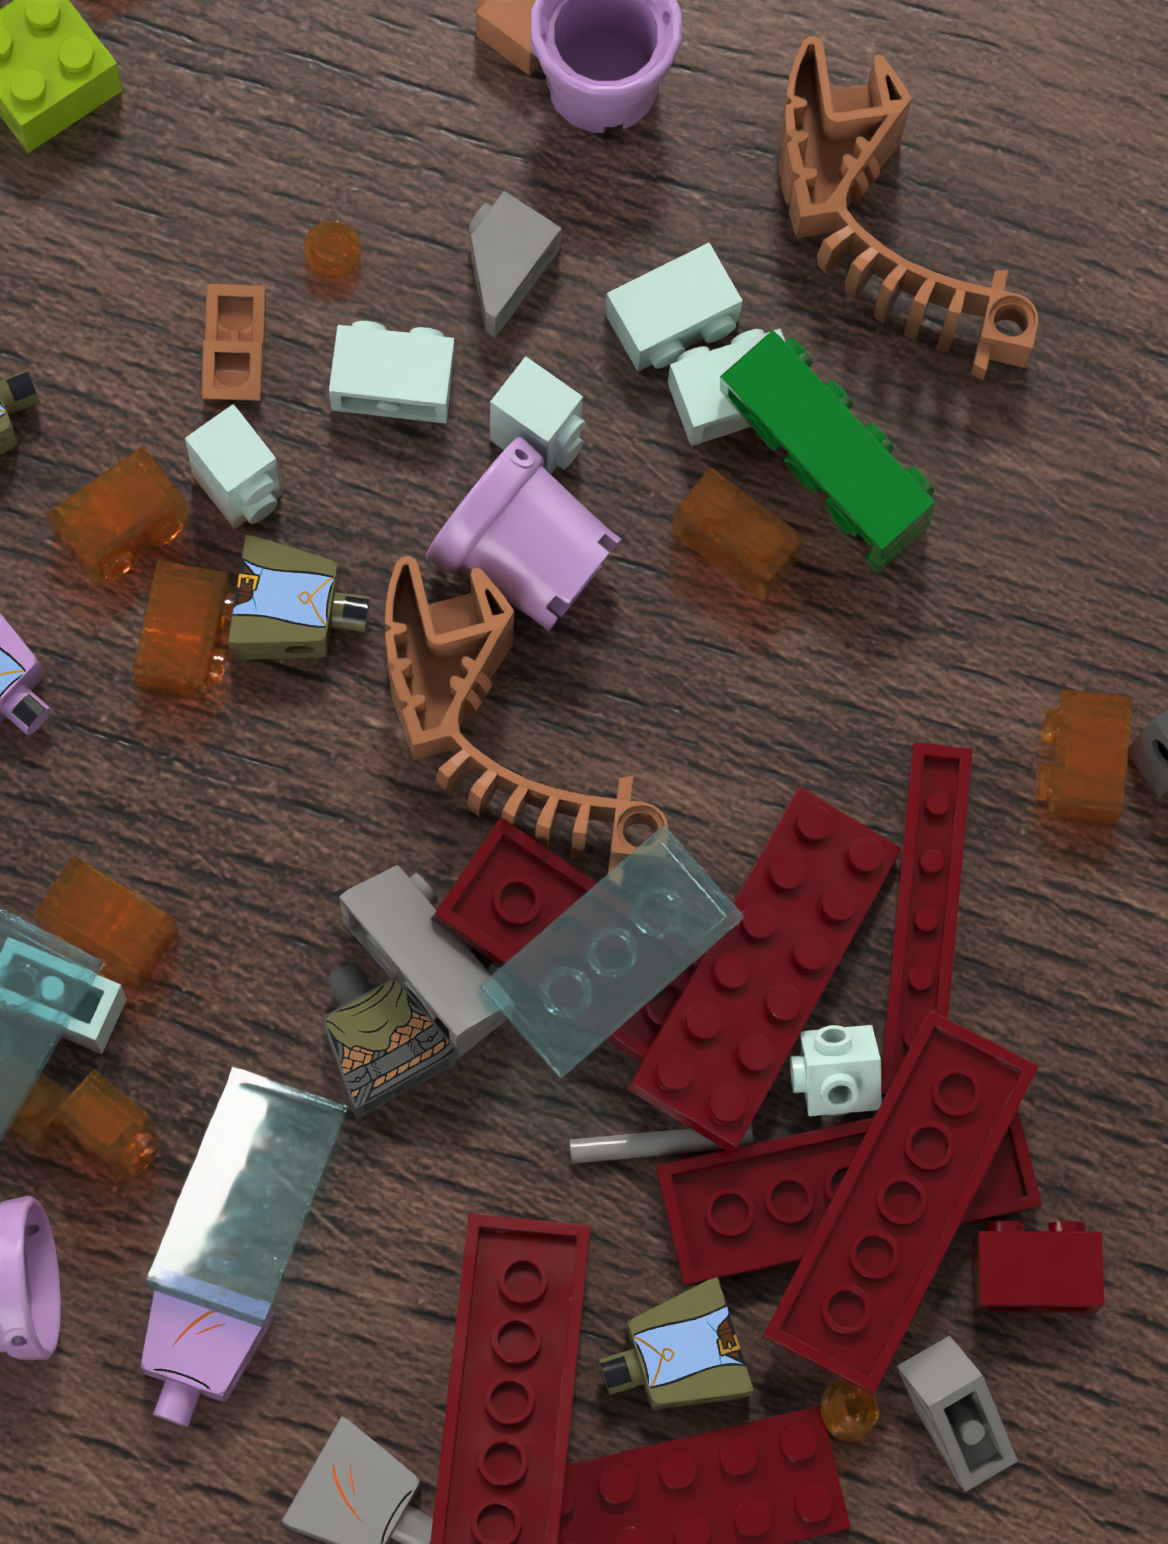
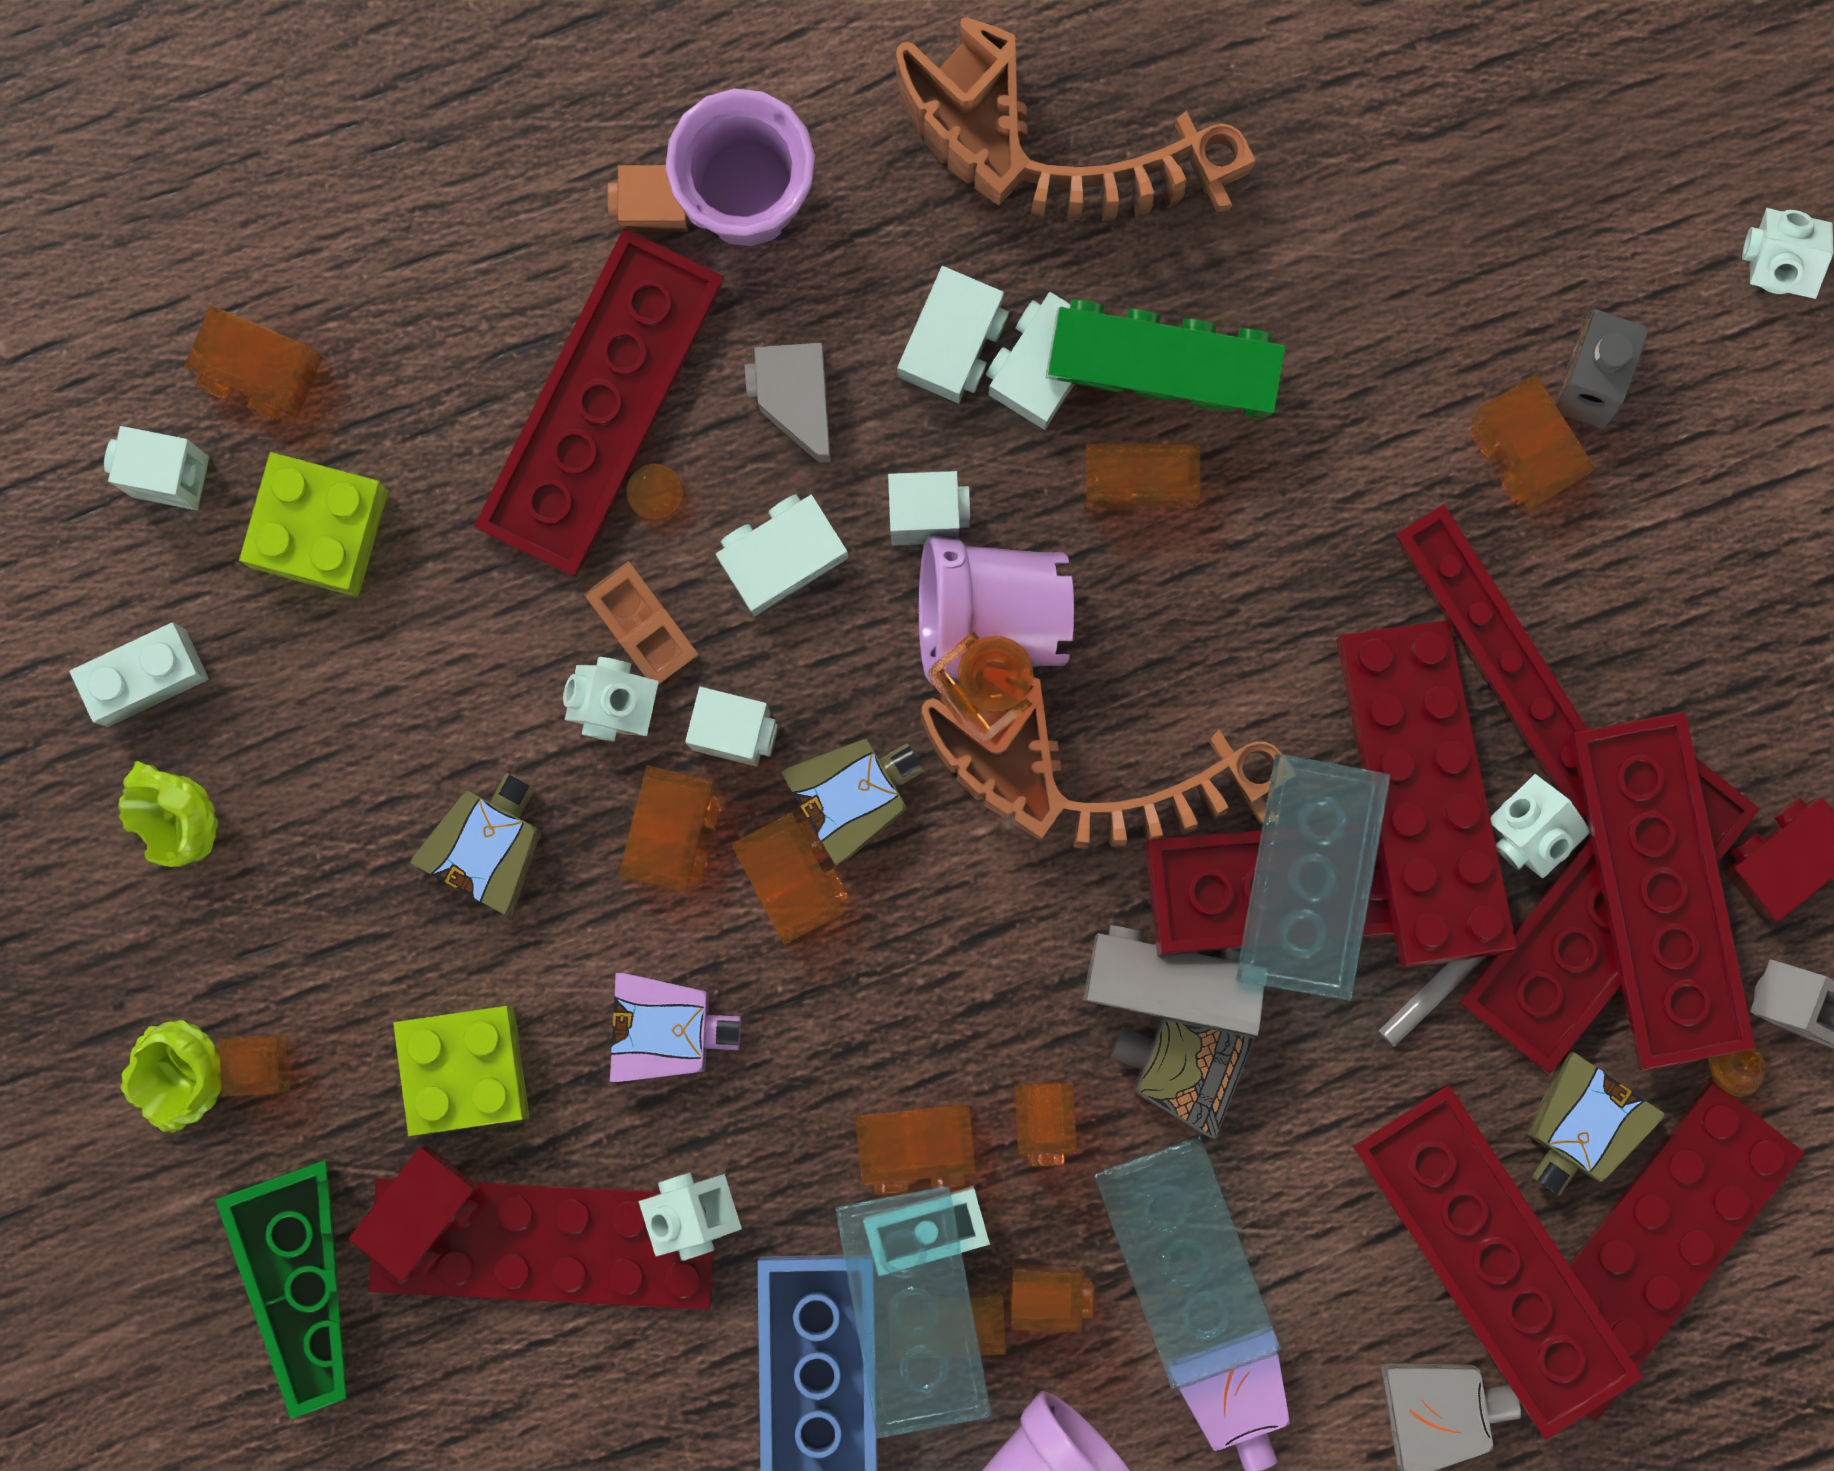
camera: 30 degrees left, 10 degrees up
(176, 378) = (609, 699): none -> light aqua brick
(226, 980) = (1044, 1122): none -> clear orange brick
(345, 147) = (599, 403): none -> dark red plate
(472, 565) = (991, 677): none -> clear orange piece

